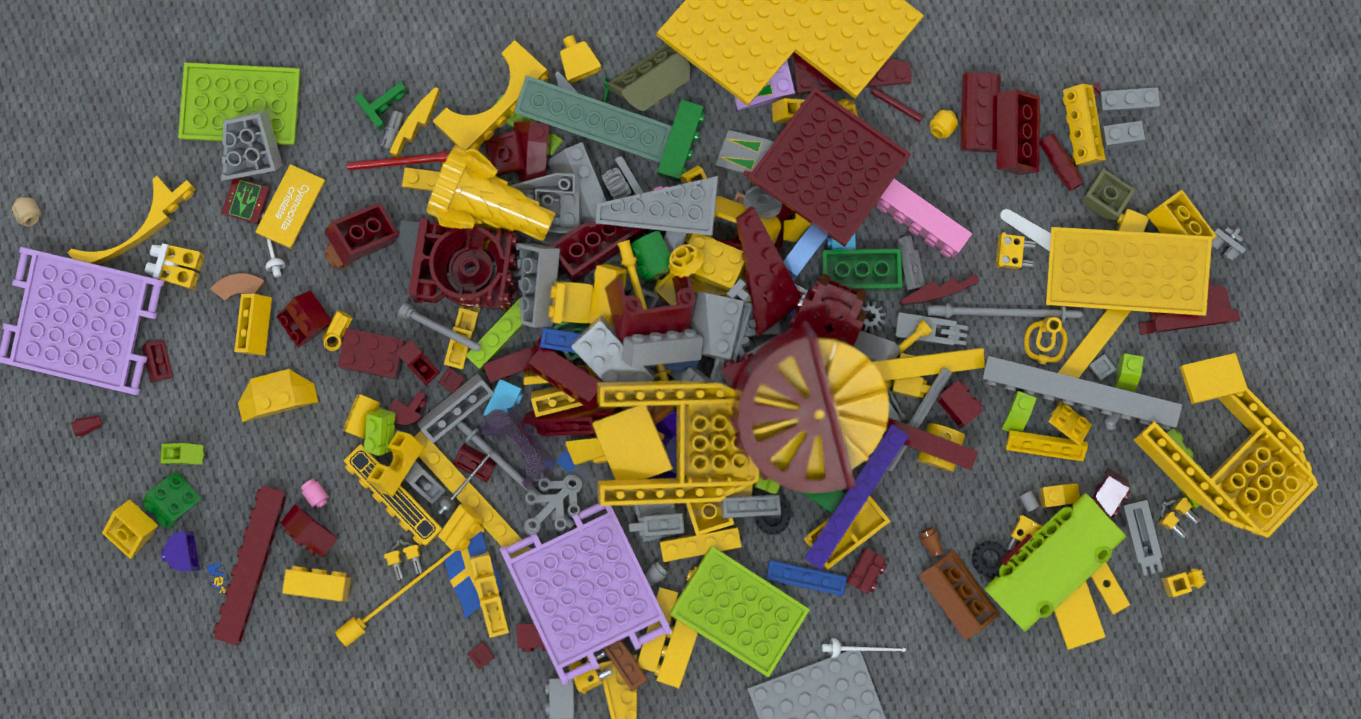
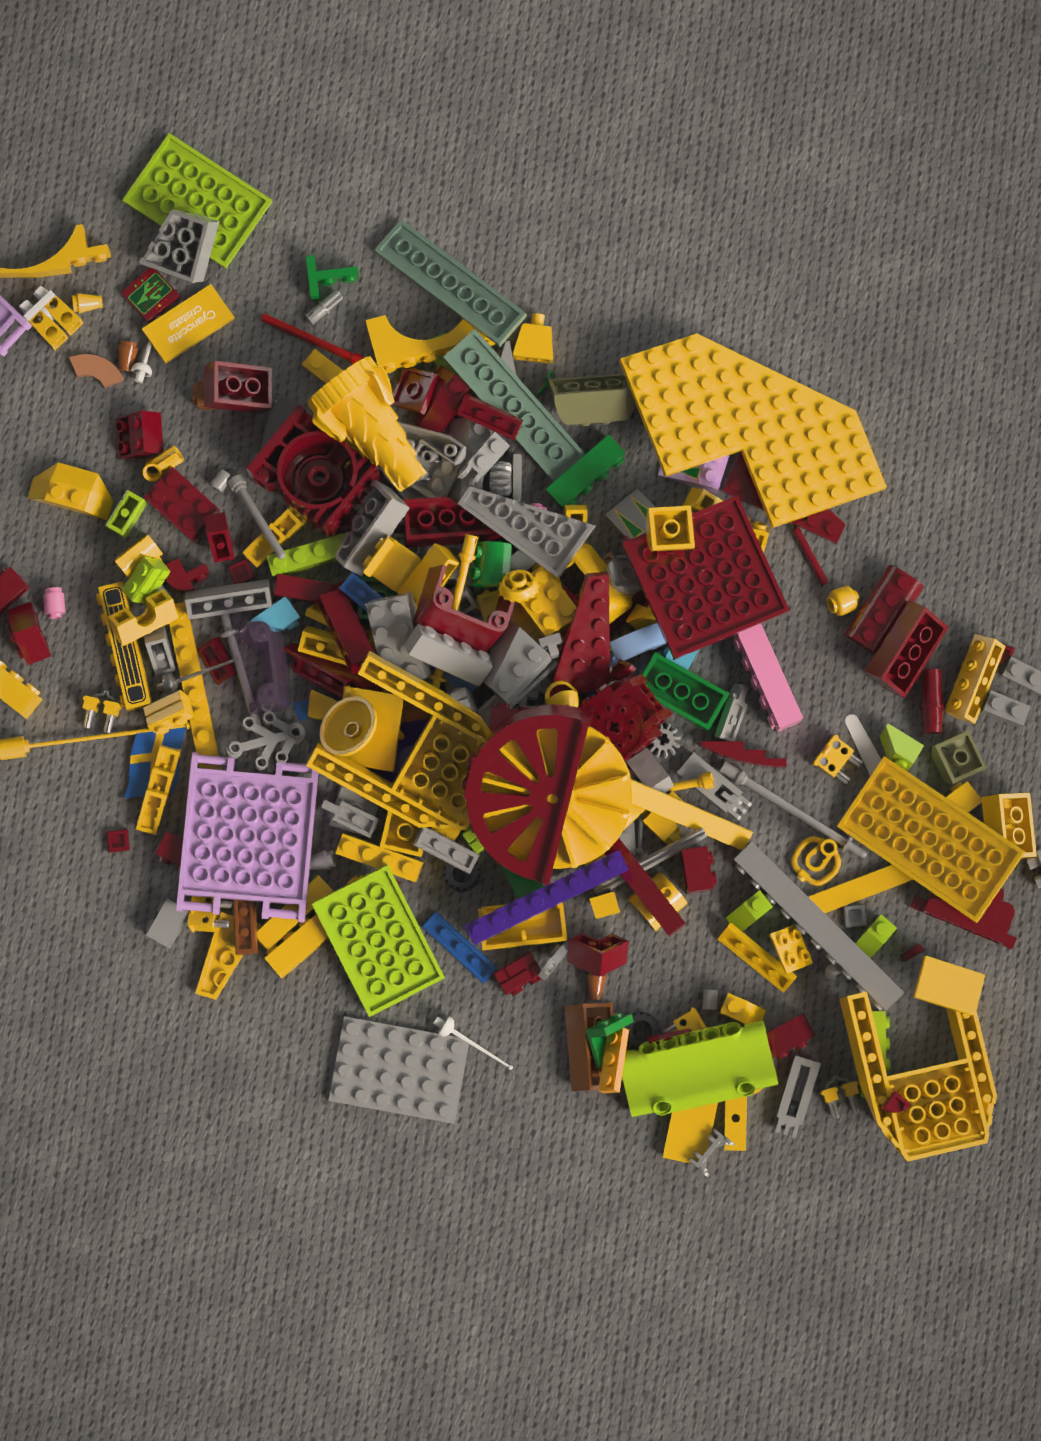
camera: 35 degrees right, 0 degrees up
(197, 237) = (86, 302): none -> yellow cone
(253, 324) = (89, 413): yellow brick -> none
(255, 259) = (126, 355): none -> dark orange cone
(331, 388) = (126, 514): none -> lime brick
(392, 316) = (221, 480): none -> light grey hinge
(419, 117) = (355, 309): yellow slope -> none
(483, 51) = (450, 283): none -> sand green plate
(579, 139) = (490, 417): none -> dark red plate
(594, 175) = (484, 458): none -> light grey hinge
(608, 453) = (348, 726): none -> yellow dish
(774, 329) = (565, 697): none -> yellow piece
(780, 143) = (669, 528): none -> yellow brick
(805, 280) = (621, 670): none -> dark red tile
(889, 536) = (550, 964): none -> light grey hinge
(902, 475) = (604, 905): none -> yellow panel
(920, 519) = (597, 955): none -> dark red brick
(969, 582) = (603, 1028): none -> green bracket
(986, 596) = (613, 1061): none -> light orange plate
(1058, 213) = (900, 747): none -> lime slope
(1107, 608) = (702, 1163): none -> light grey piece
(1167, 365) = (912, 952): none -> dark red tile
(1181, 582) = (804, 1159): yellow brick -> none
(1231, 497) = (895, 1103): none -> dark red tile

